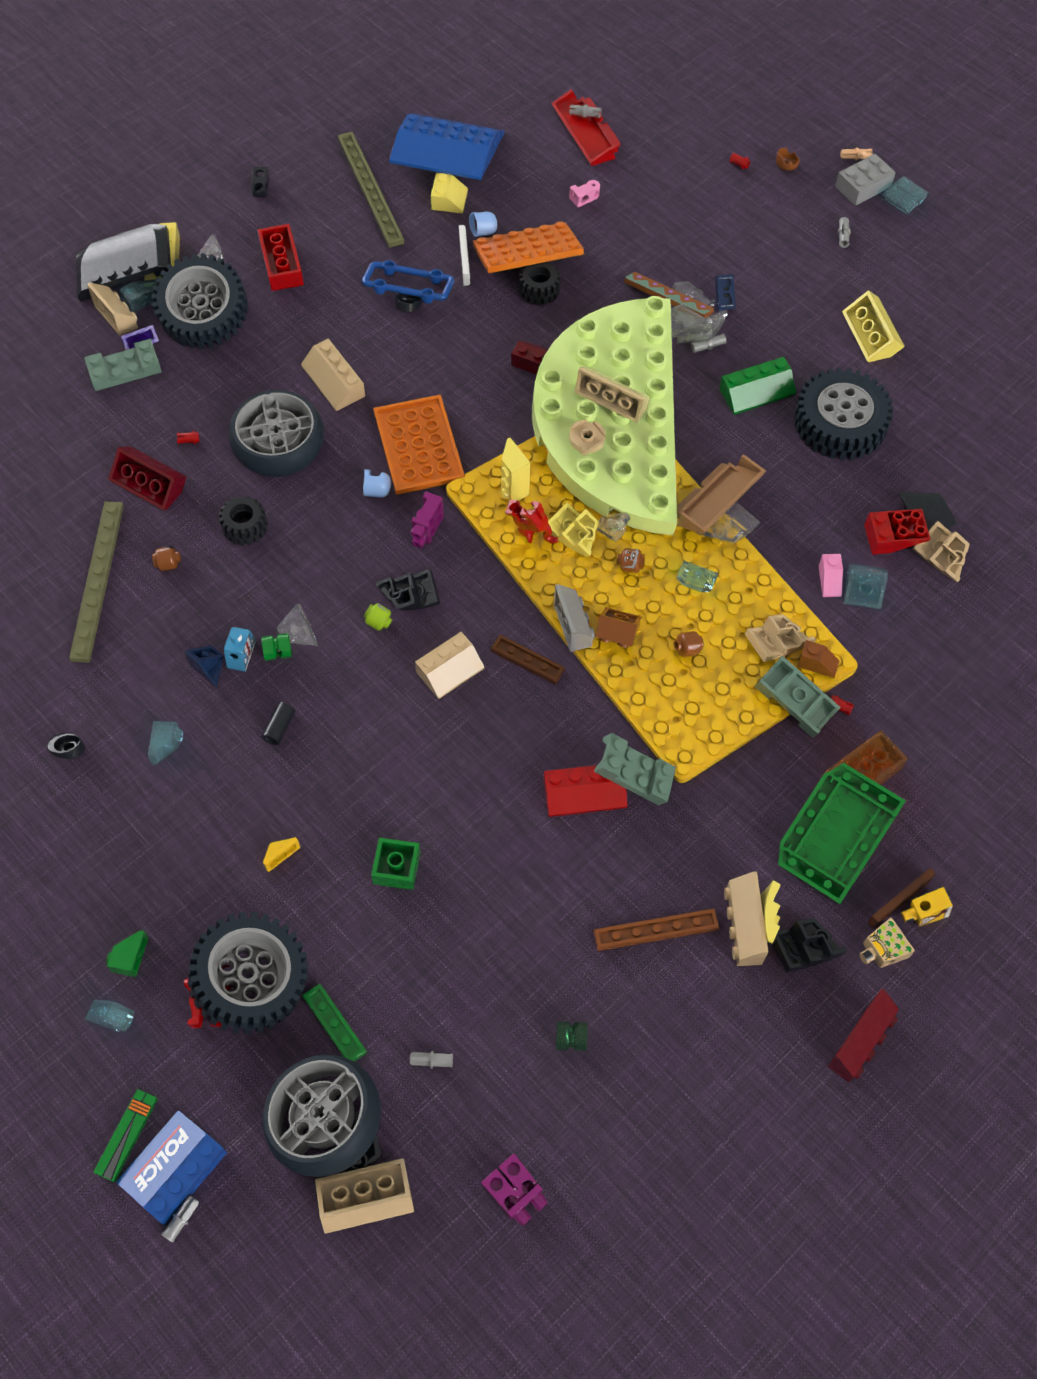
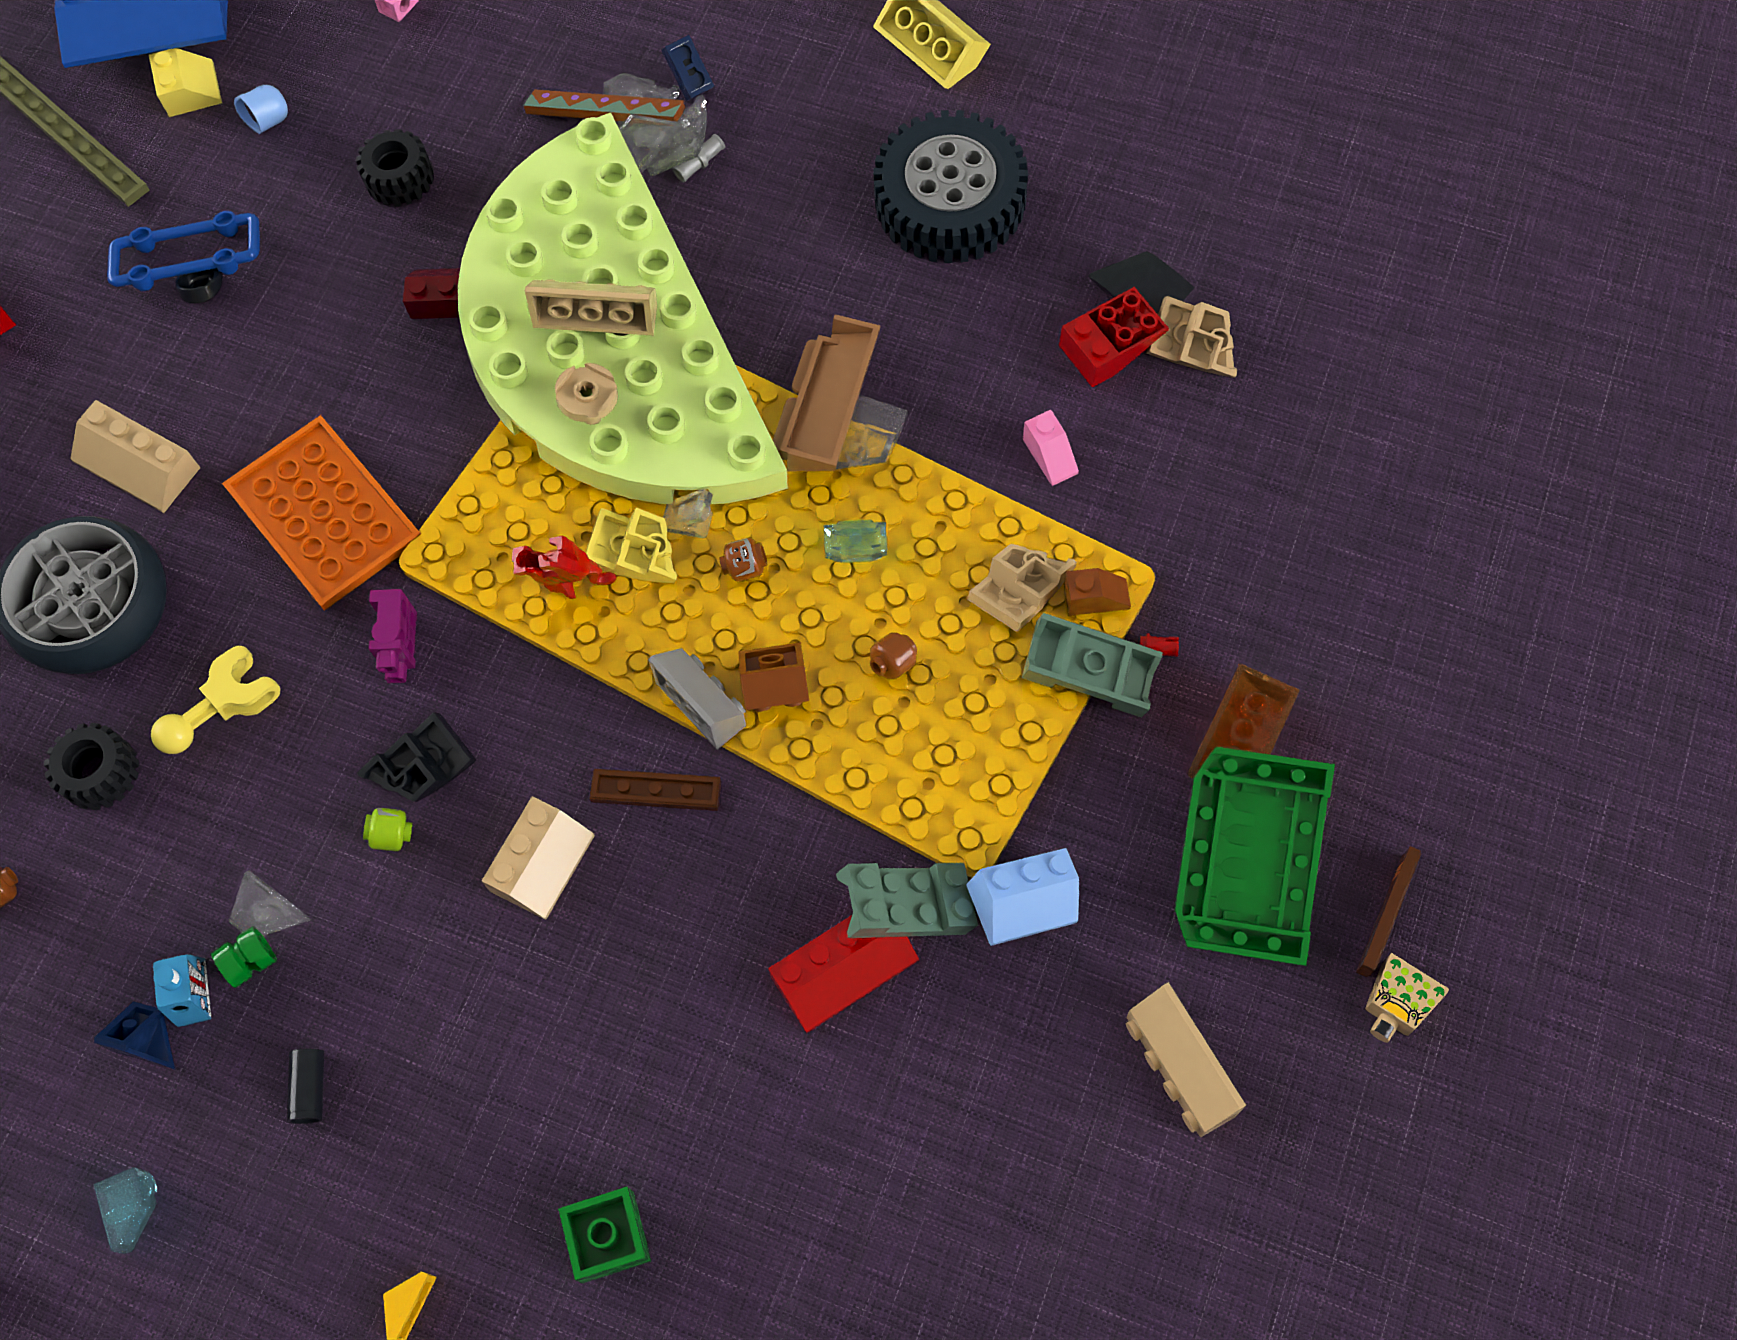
camera: 20 degrees left, 5 degrees up
(324, 514) = (223, 695): none -> light yellow piece
(376, 485) = (285, 612): light blue helmet -> none
(464, 255) = (255, 171): white tile -> none
(514, 473) = (498, 499): light yellow slope -> none
(527, 247) = (349, 118): orange plate -> none
(656, 929) = (1053, 1140): dark orange tile -> none
(701, 797) = (1026, 896): none -> light blue slope
(758, 385) = (804, 194): green slope -> none
(770, 910) = (1216, 1034): light yellow slope -> none
(805, 945) = (1284, 1056): black slope -> none
(864, 1037) = (1440, 1163): dark red slope -> none
(865, 585) = (1107, 441): clear light blue slope -> none
(936, 907) = (1444, 903): yellow torso -> none

